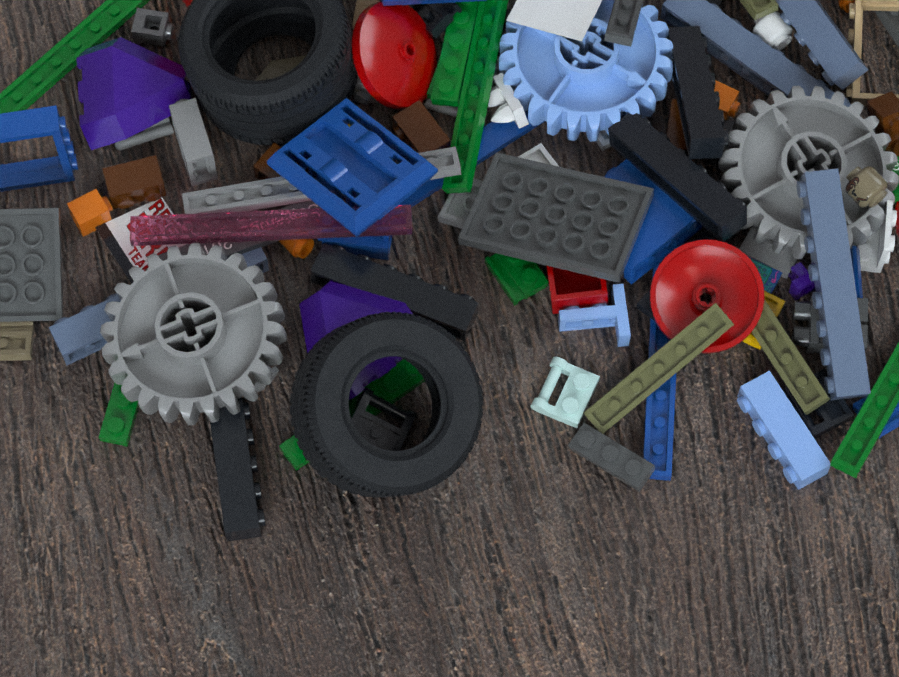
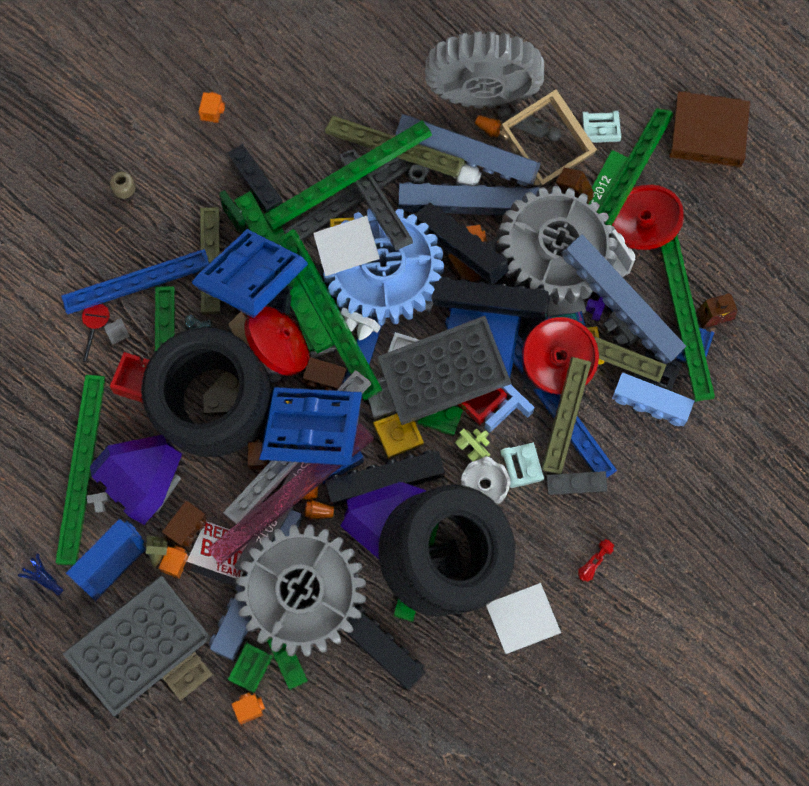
camera: 40 degrees left, 5 degrees up
(37, 422) = (248, 708): none -> orange brick
(65, 92) = (98, 501): none -> light grey tile
(76, 383) = (250, 668): none -> green plate
(80, 181) = (156, 548): none -> olive tile
(152, 27) = (112, 422): flat silver brick -> none
(193, 141) = (201, 476): light grey window -> none
(291, 272) = (318, 510): none -> orange cone
(423, 560) = (523, 618): none -> white sticker
(447, 259) = (397, 437): none -> yellow plate
(509, 361) = (493, 472): none -> white plate
(533, 328) = (467, 438): none -> yellowish green hips
(540, 563) = (588, 570): none -> red piece
(866, 186) = (598, 232): dark tan head -> none

